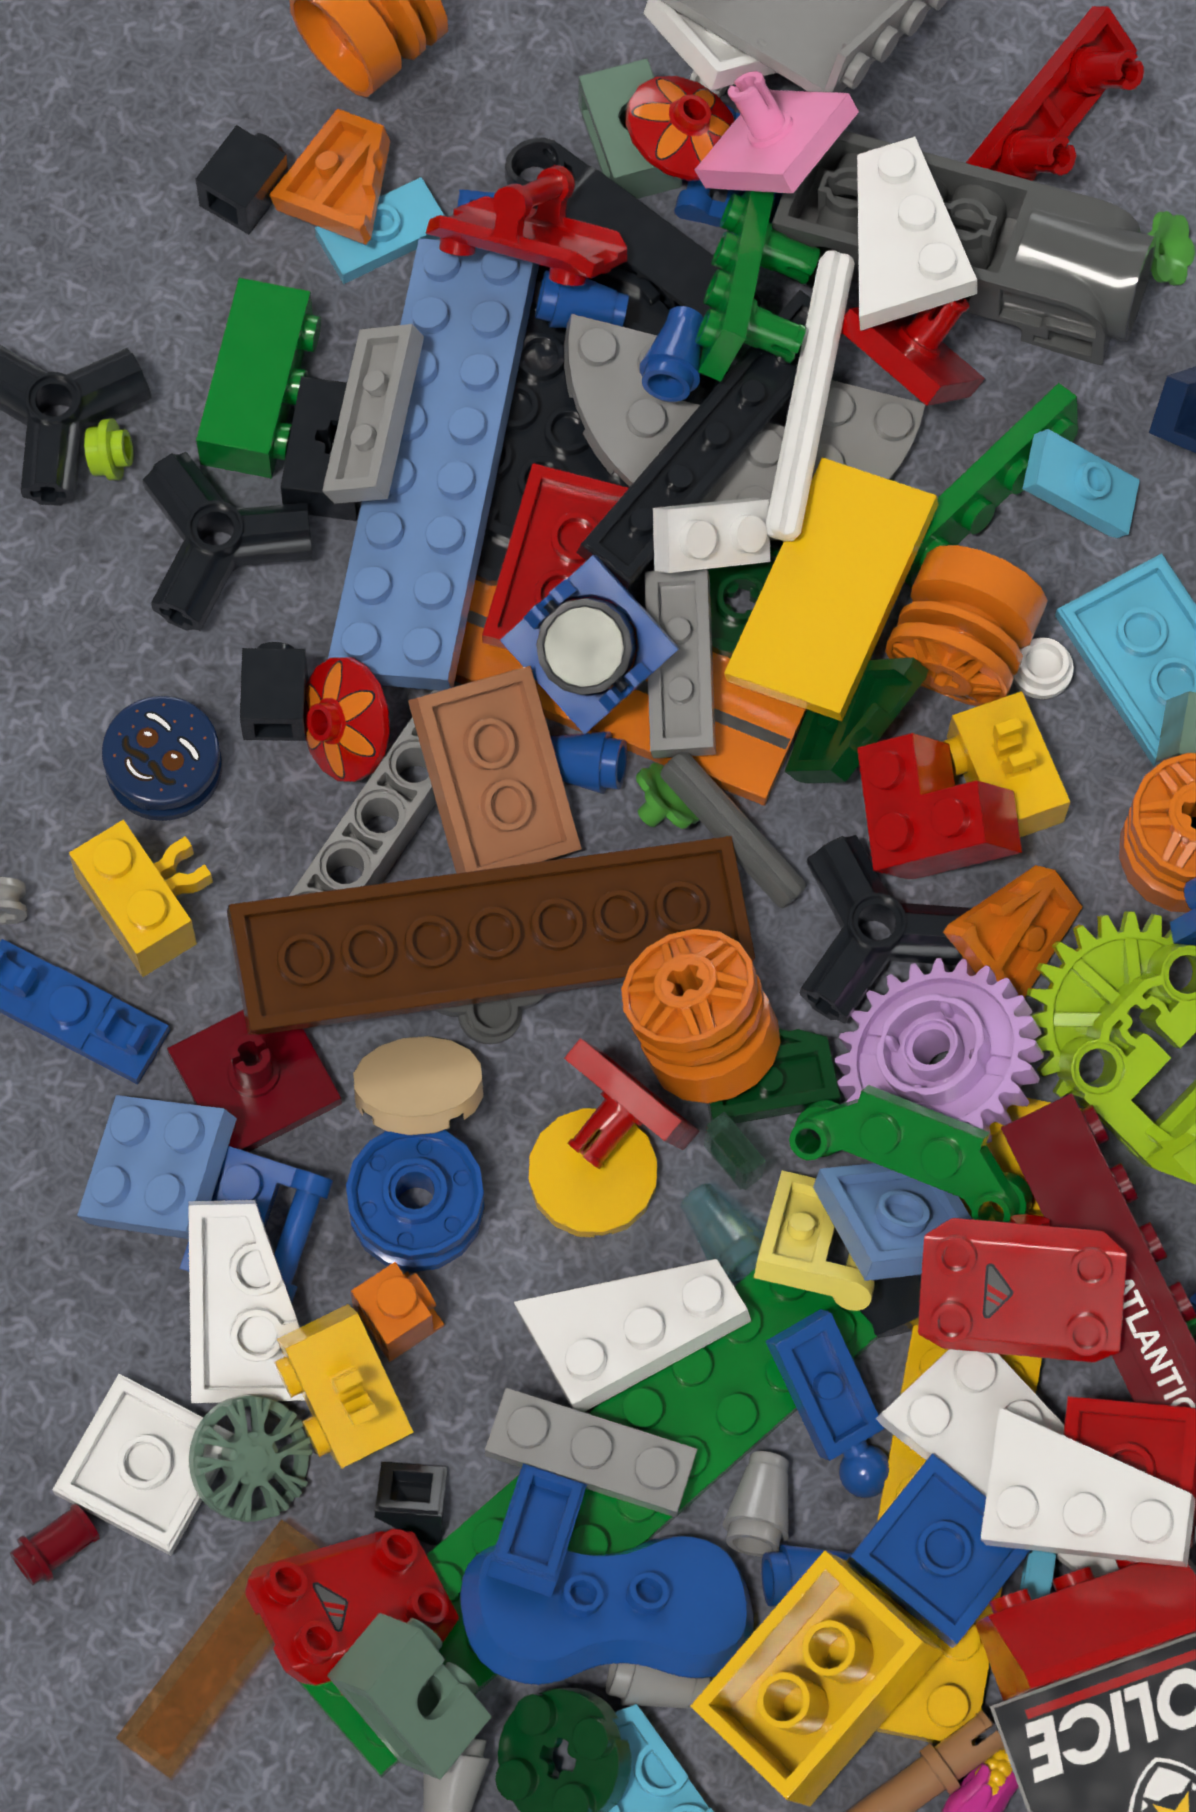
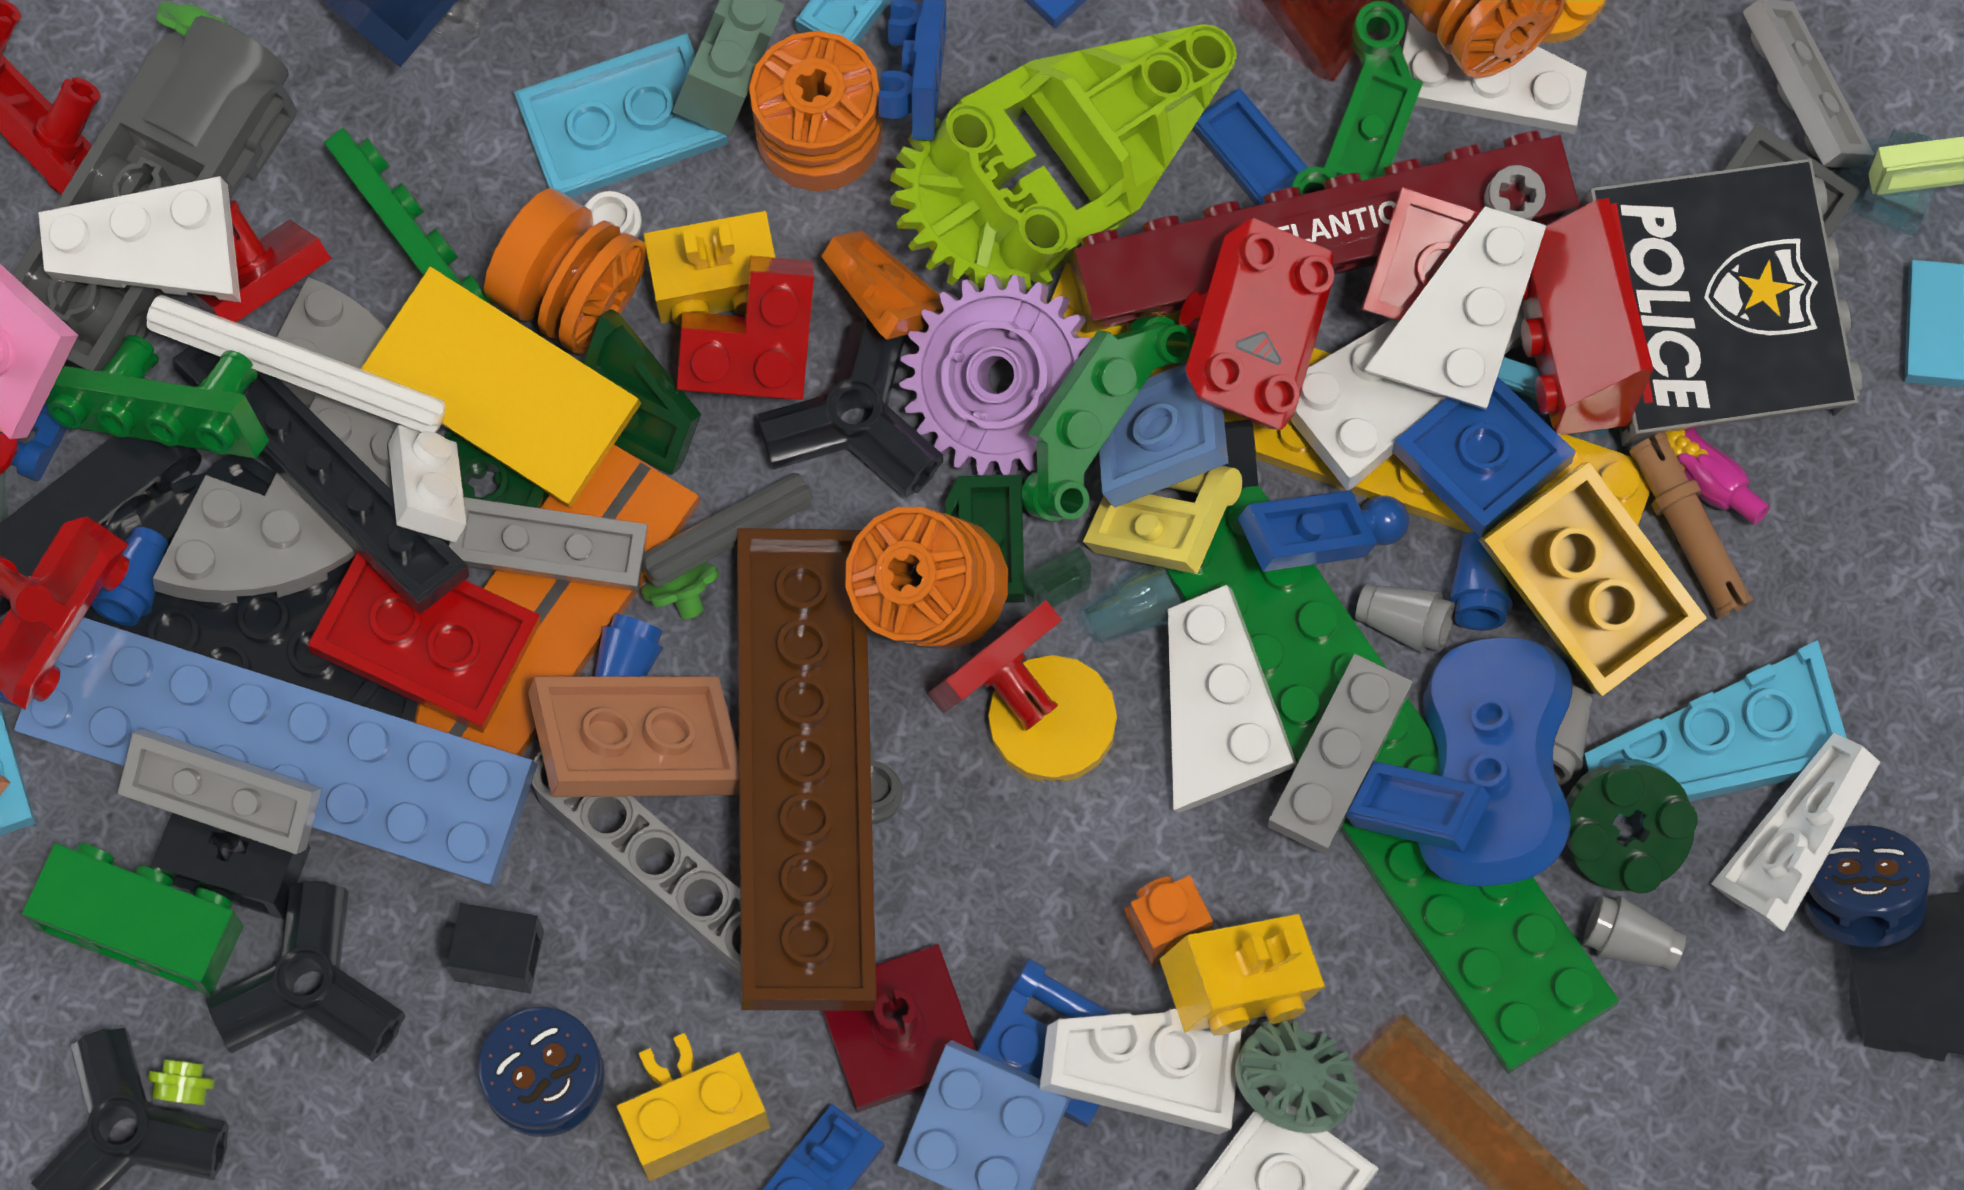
camera: 75 degrees left, 0 degrees up
(330, 1595) = (1468, 986): red shield -> none
(346, 719) = (539, 858): red dish -> none
(408, 1694) = (1567, 939): sand green brick -> none
(411, 1504) = (1357, 933): black slope -> none
(418, 1085) = (943, 862): tan tile -> none
(422, 1236) = (1046, 847): blue wheel -> none
(589, 644) = (525, 616): piece -> none
(674, 358) = (230, 482): blue cone -> none
(1081, 484) = (431, 145): medium azure plate -> none

